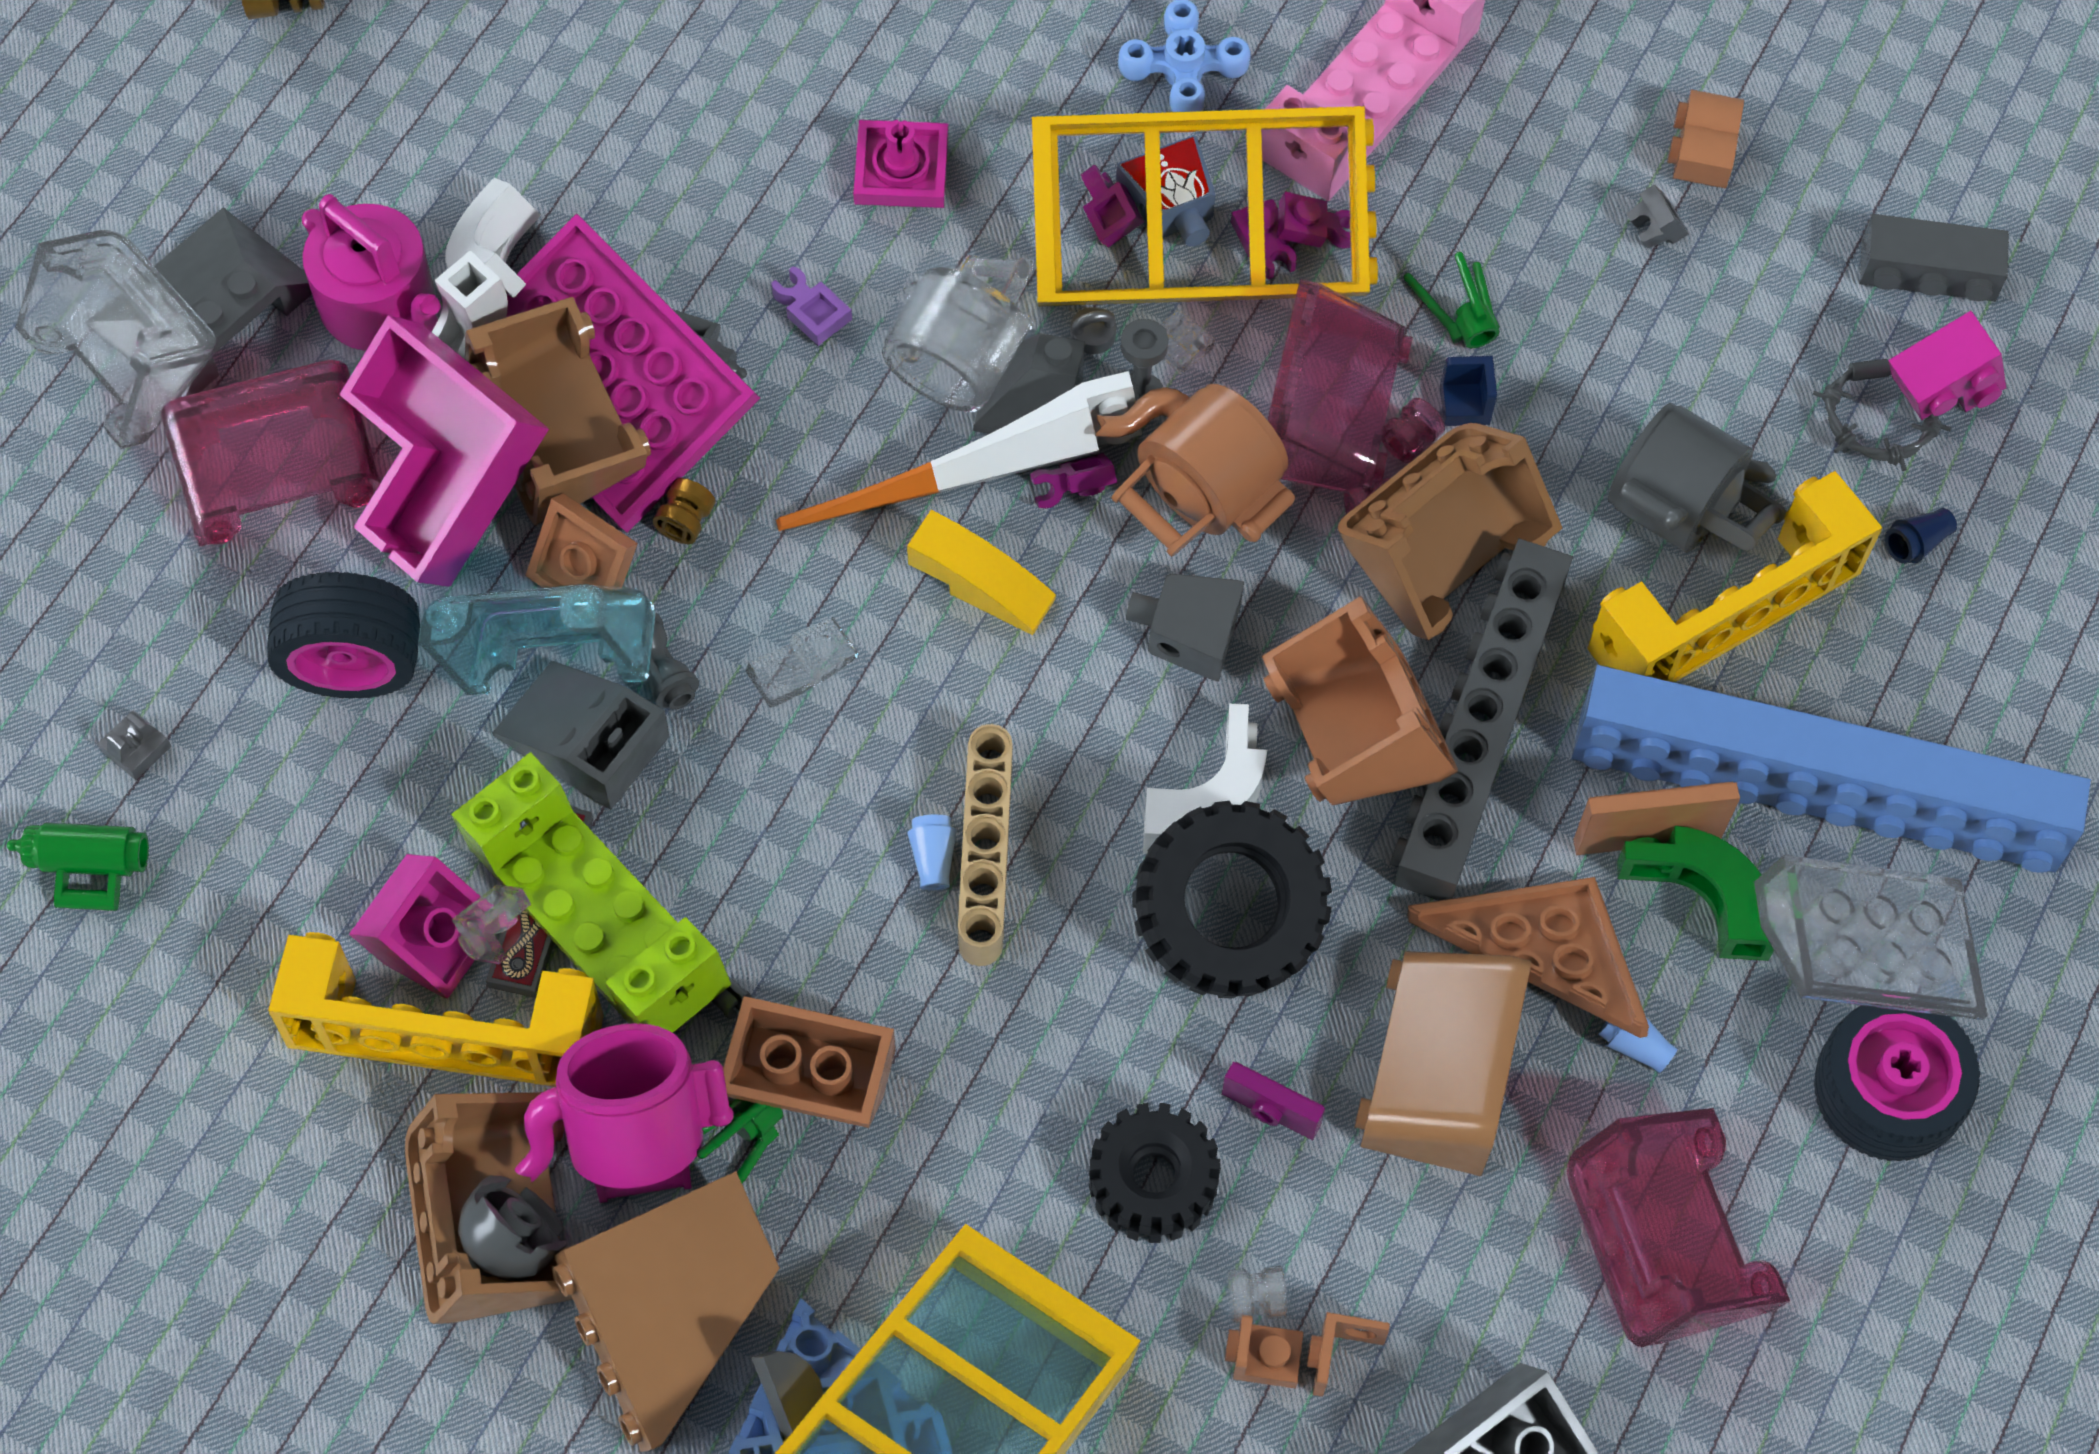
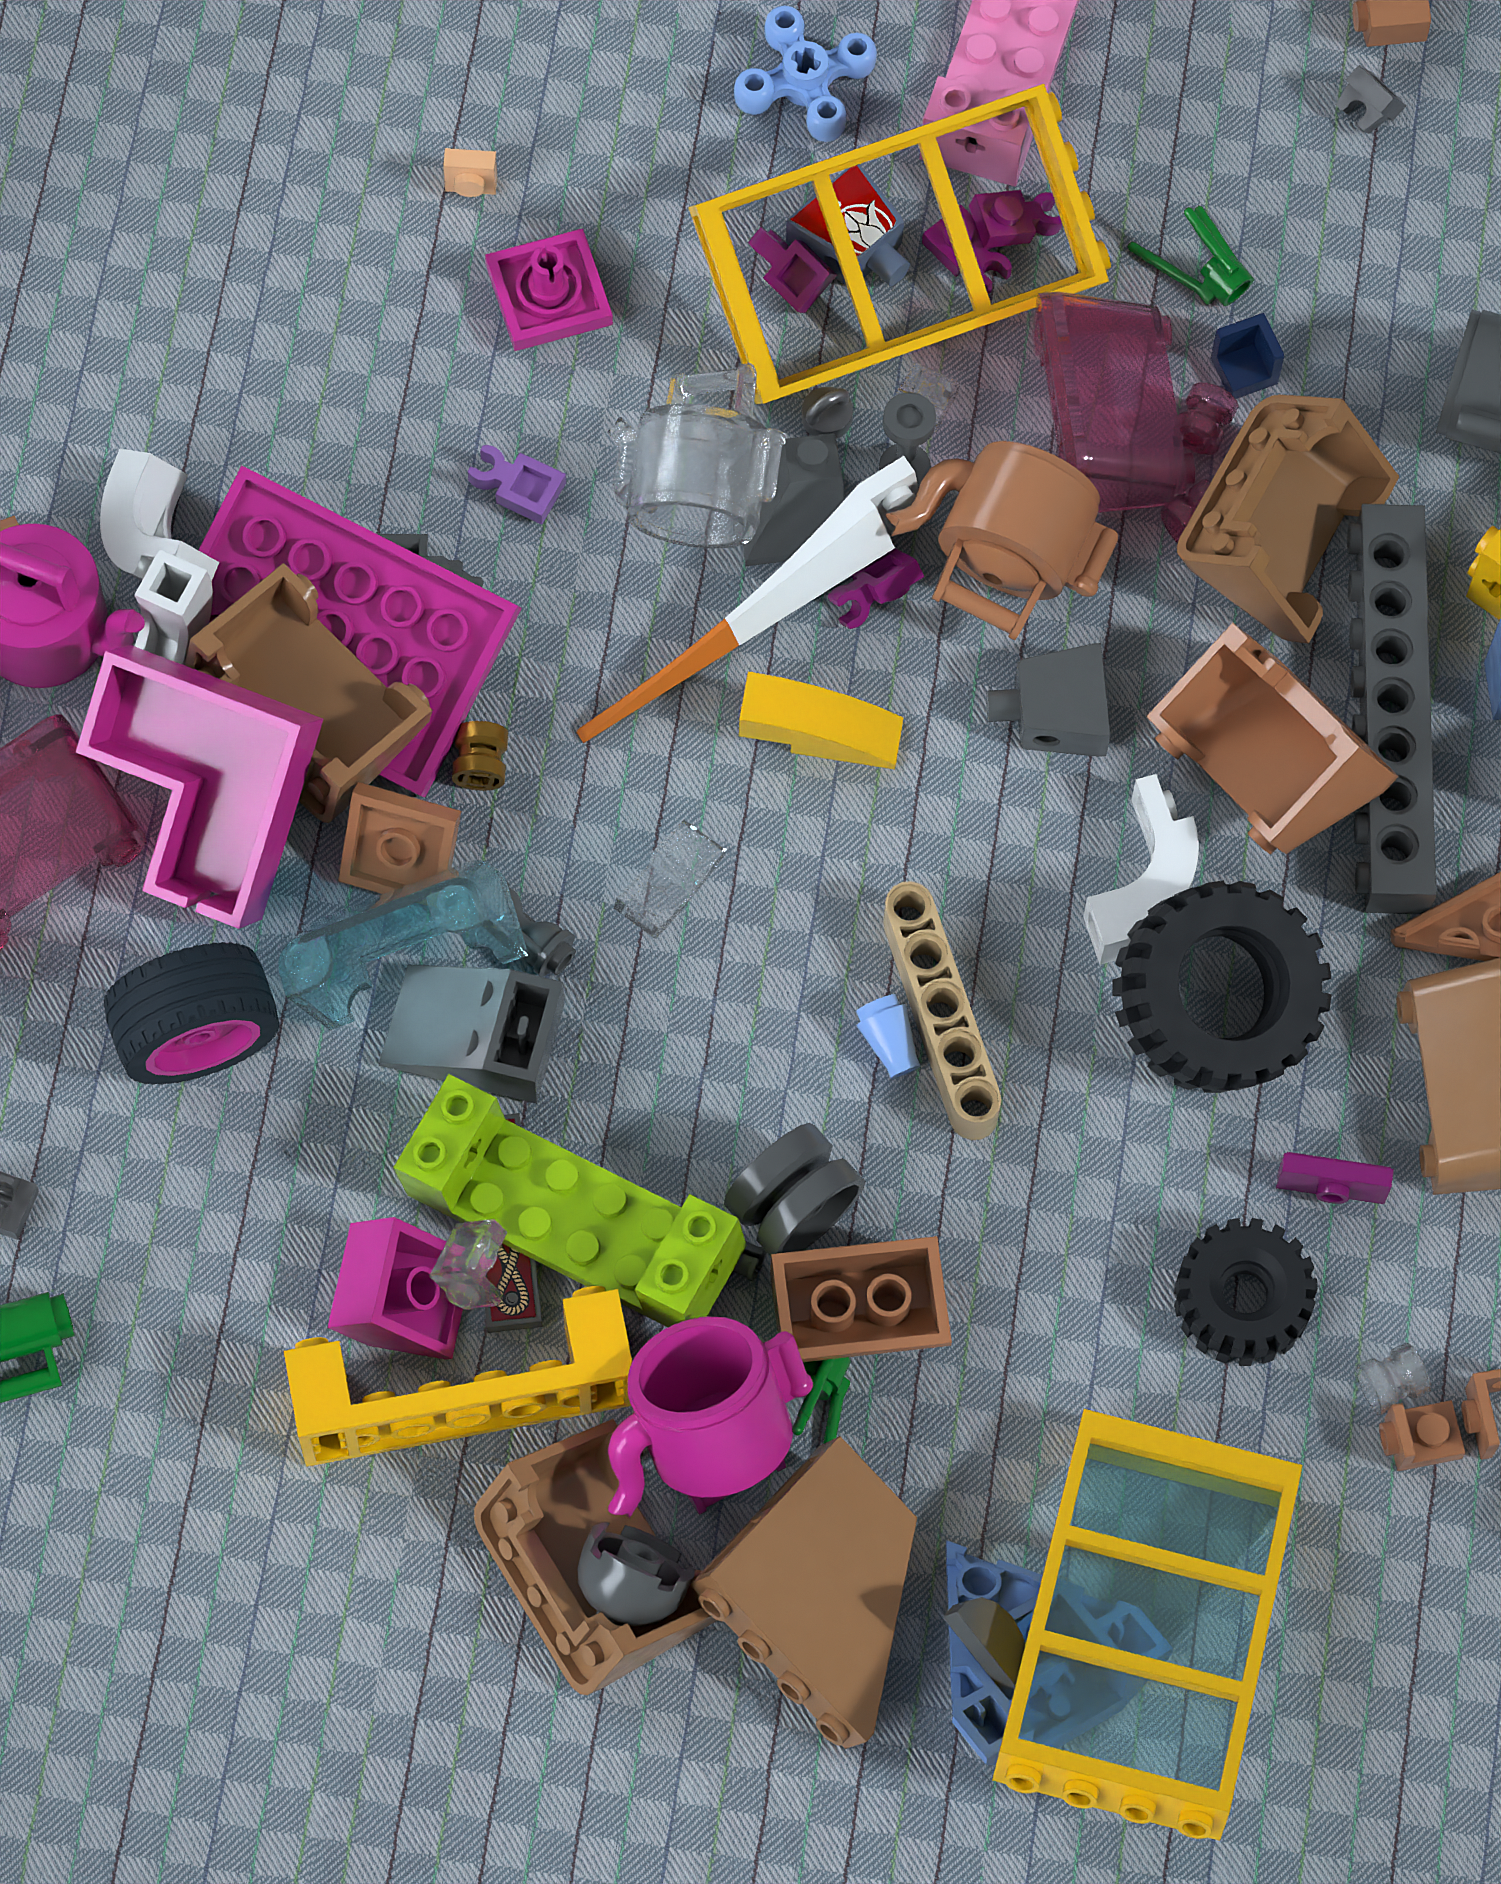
camera: 20 degrees left, 5 degrees up
(789, 950) = (794, 1191): none -> dark grey wheel
(875, 53) = (470, 172): none -> light nougat plate

